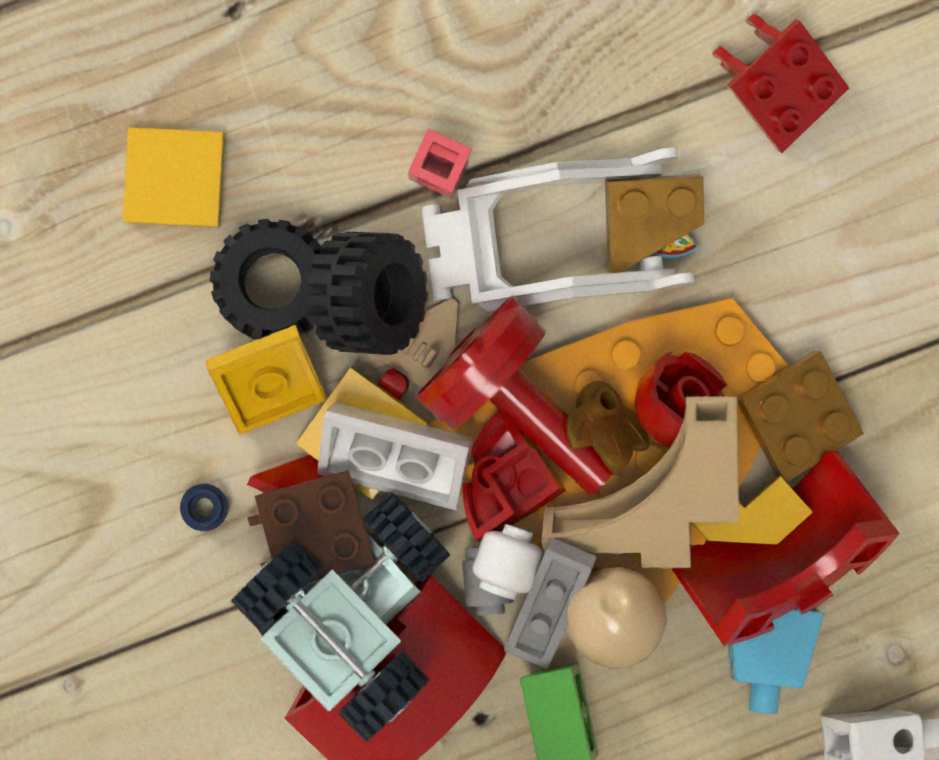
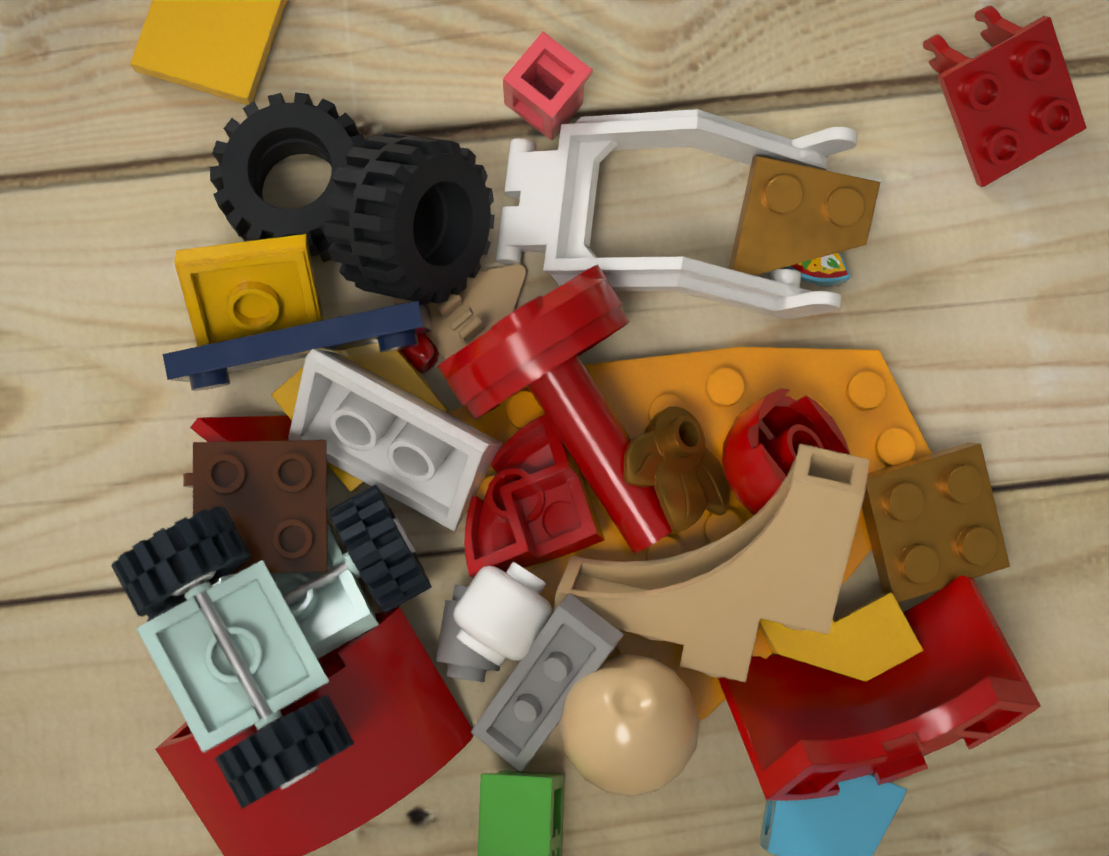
camera: 10 degrees right, 5 degrees down
(190, 514) = (114, 441): dark blue plate -> none
(250, 435) = (210, 364): none -> dark blue plate

